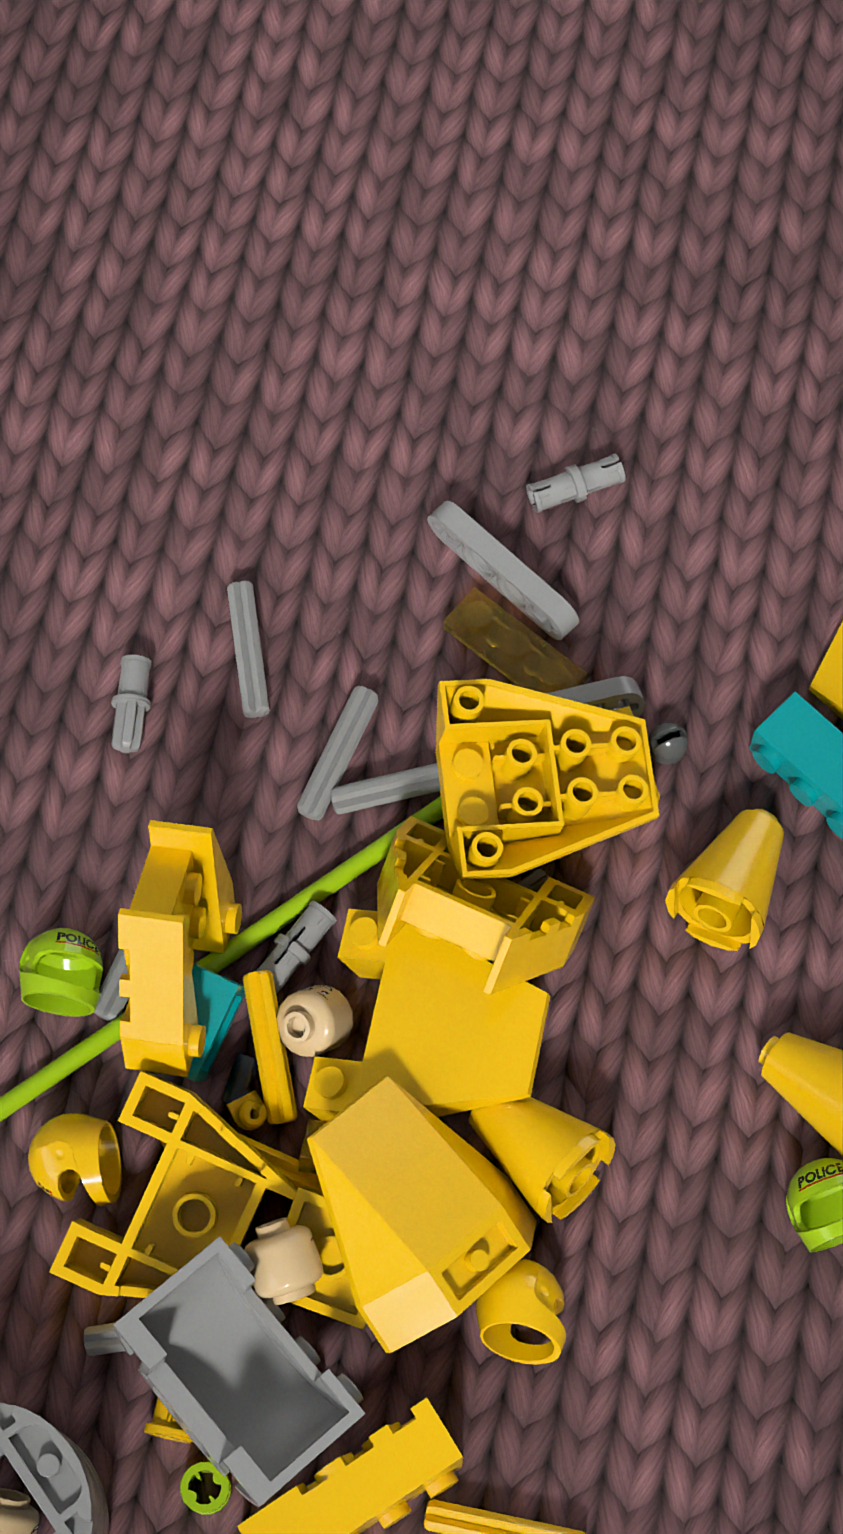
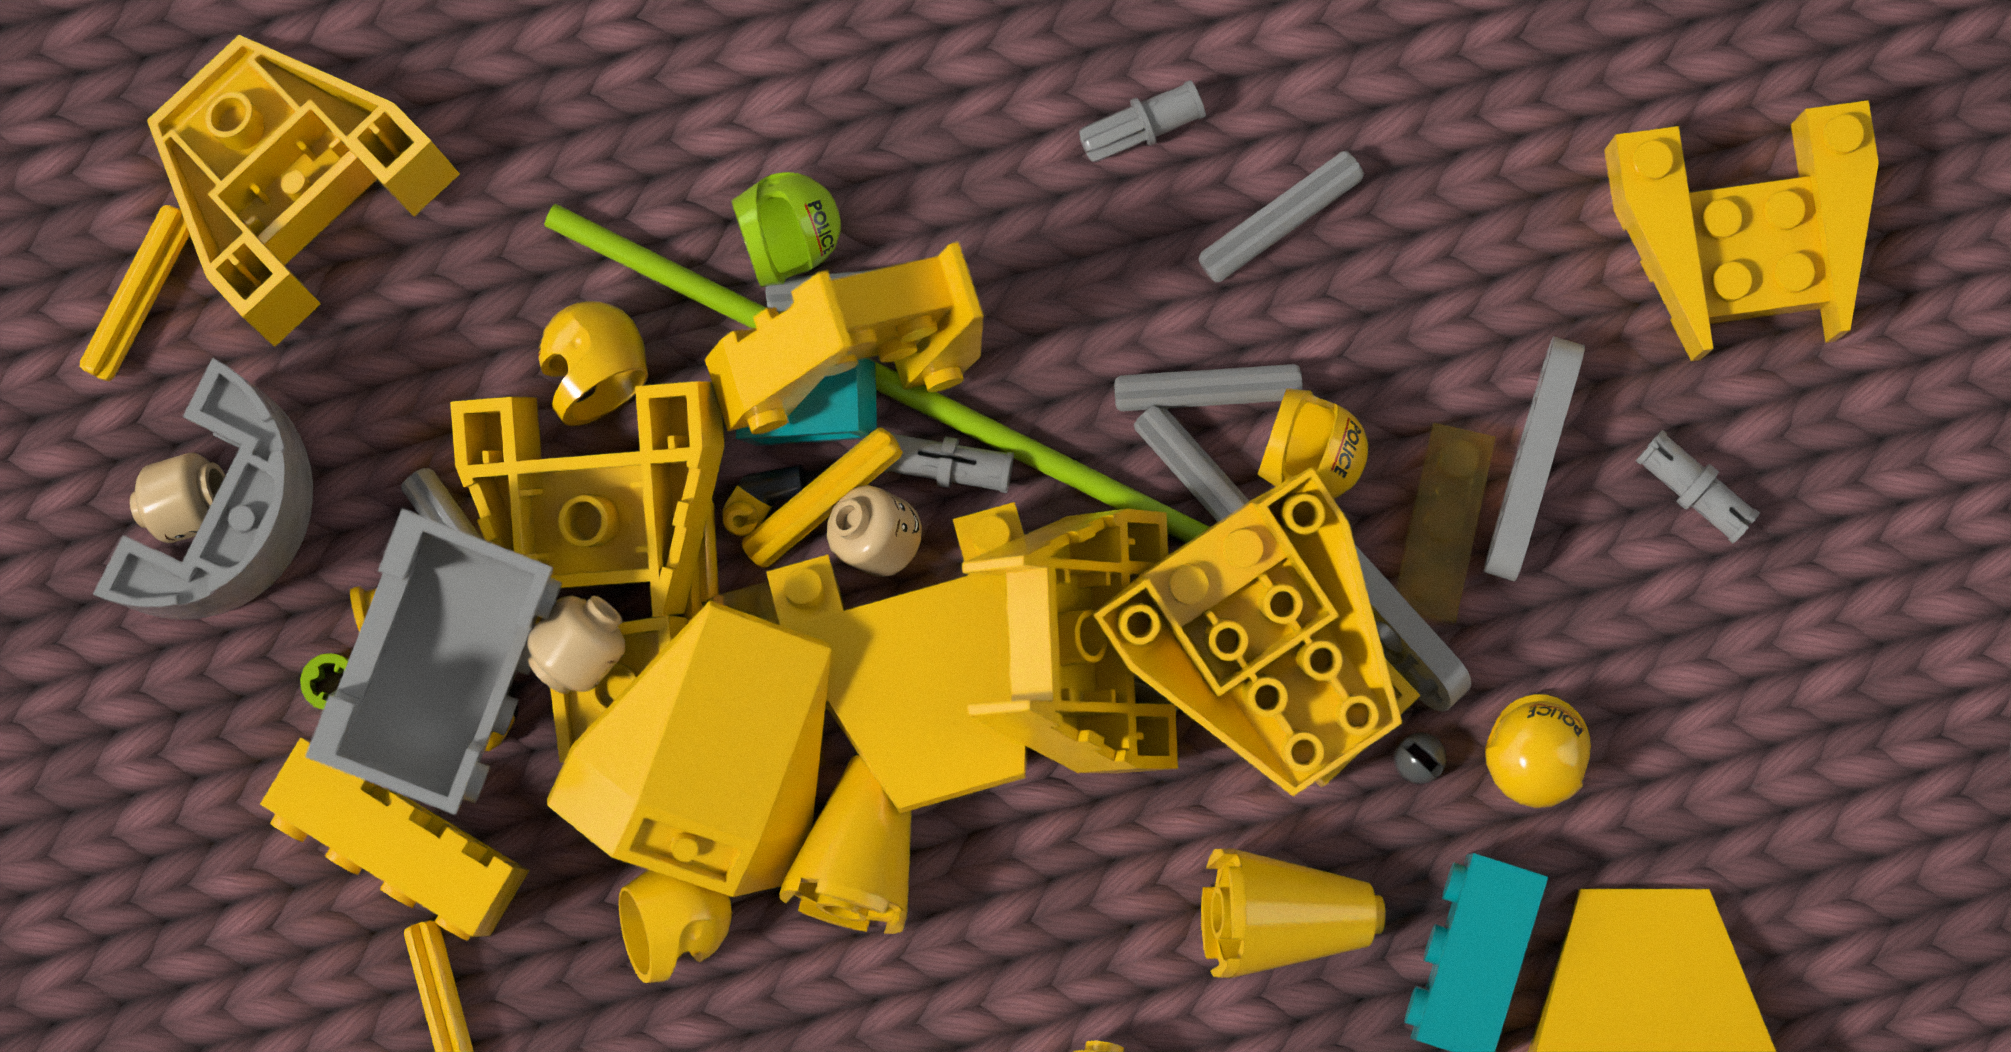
camera: 65 degrees right, 15 degrees up
(410, 699) = (1318, 437): none -> yellow helmet
(435, 373) = (1751, 244): none -> yellow wedge
(704, 661) = (1538, 751): none -> yellow helmet

